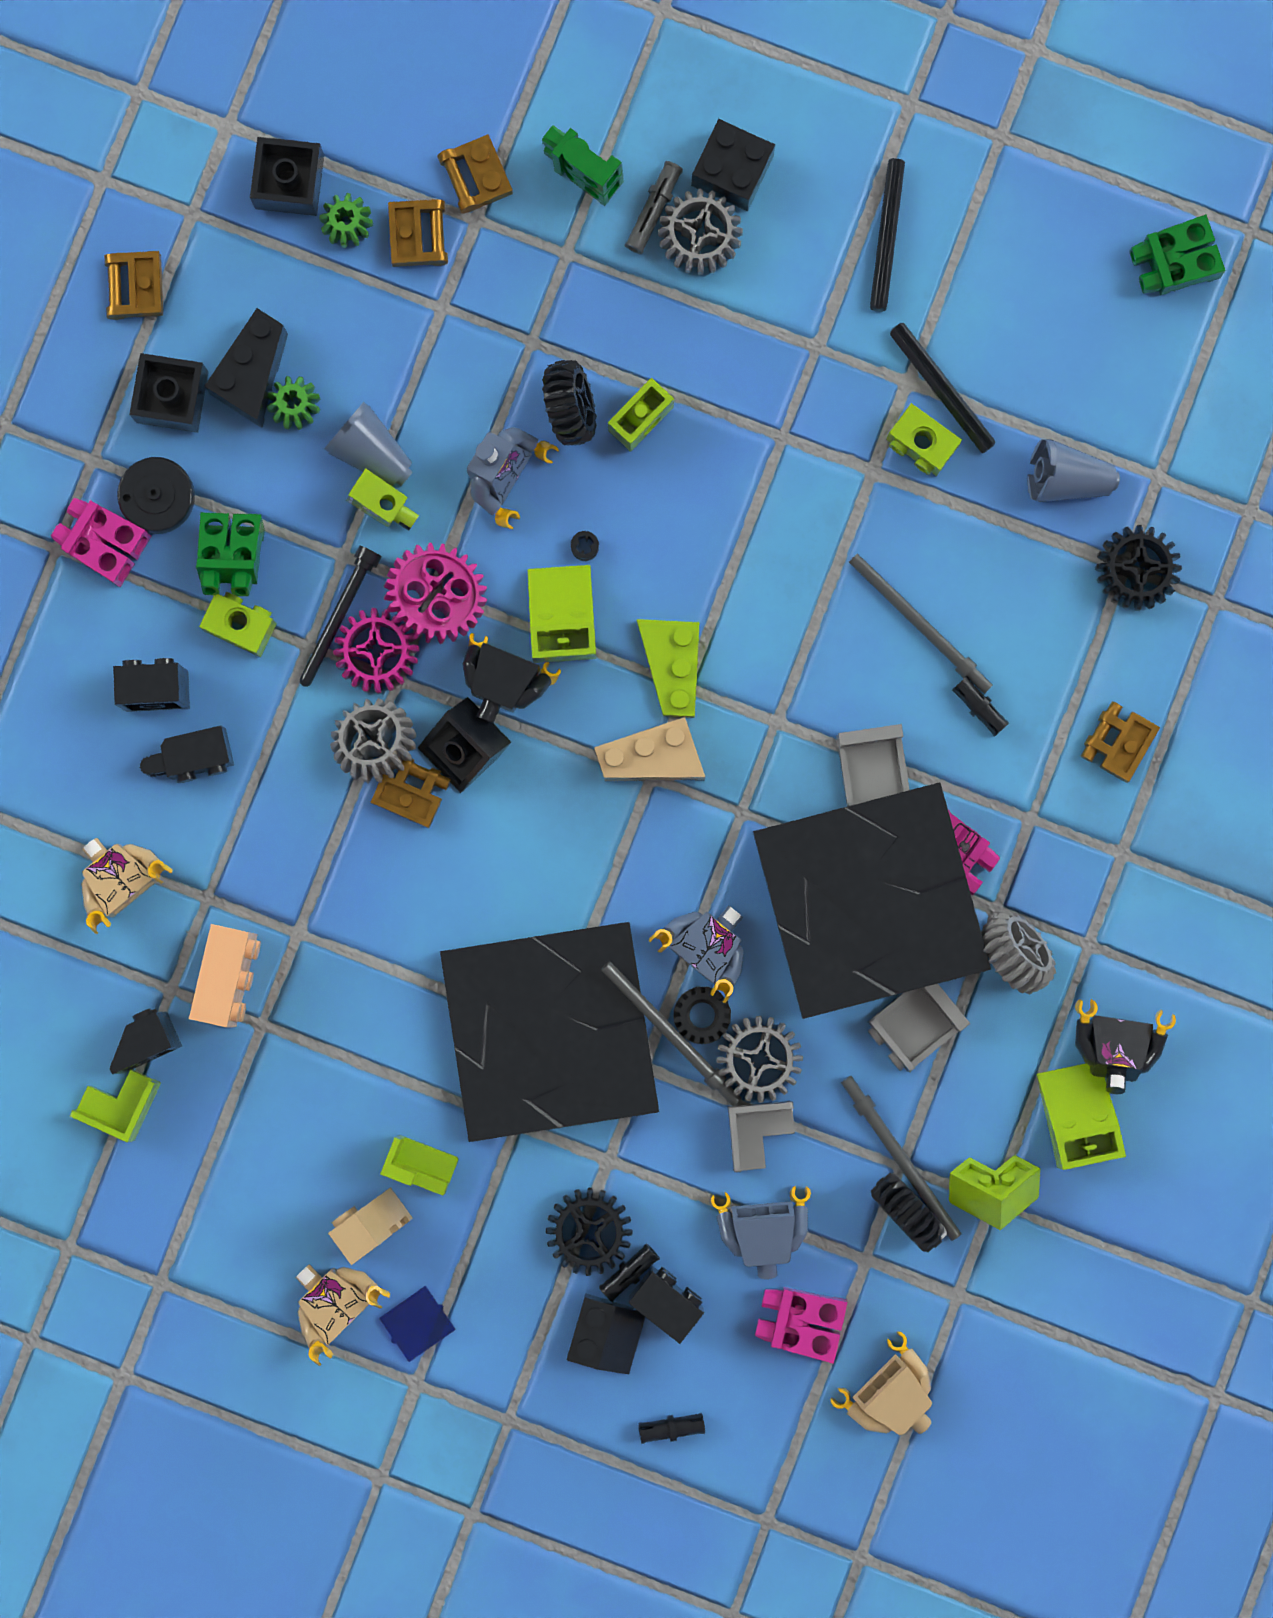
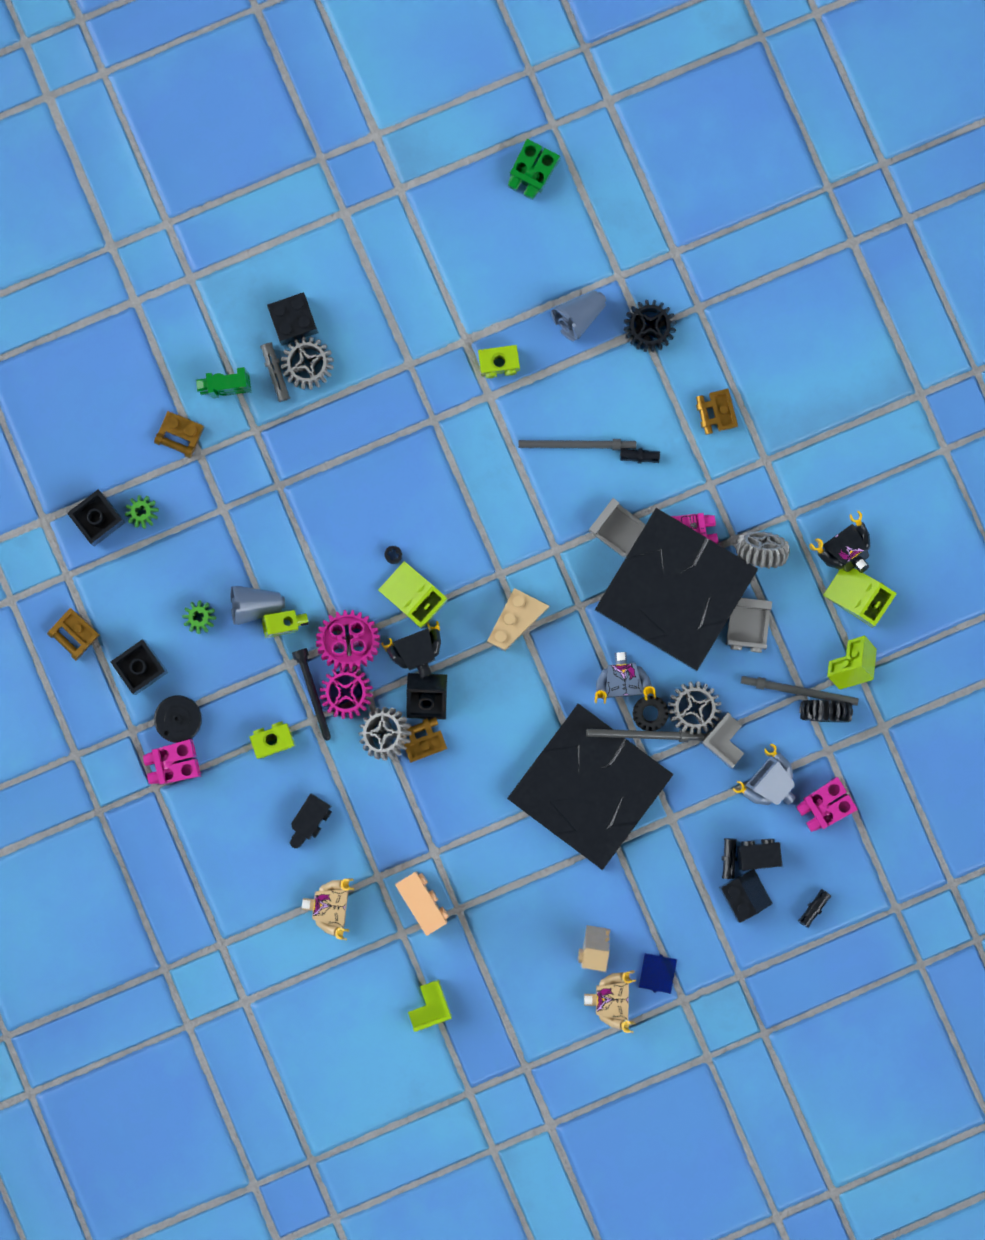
camera: 40 degrees left, 0 degrees up
(145, 1040) = (414, 965): black slope -> none
(151, 685) = (261, 806): black brick -> none
(229, 552) = (241, 717): green hips -> none
(250, 367) = (164, 621): black wedge -> none
(407, 233) = (175, 491): pearl gold plate -> none
(419, 1165) = (591, 901): lime panel -> none
(497, 467) = (320, 556): sand blue torso -> none
(566, 1247) = (676, 854): black gear -> none
(569, 402) = (325, 497): black gear -> none
(641, 414) = (361, 471): lime brick -> none
(673, 663) = (484, 568): lime wing -> none
(887, 234) = (392, 283): black axle -> none
(893, 1396) = (898, 798): tan torso -> none
(942, 387) = (483, 328): black axle -> none

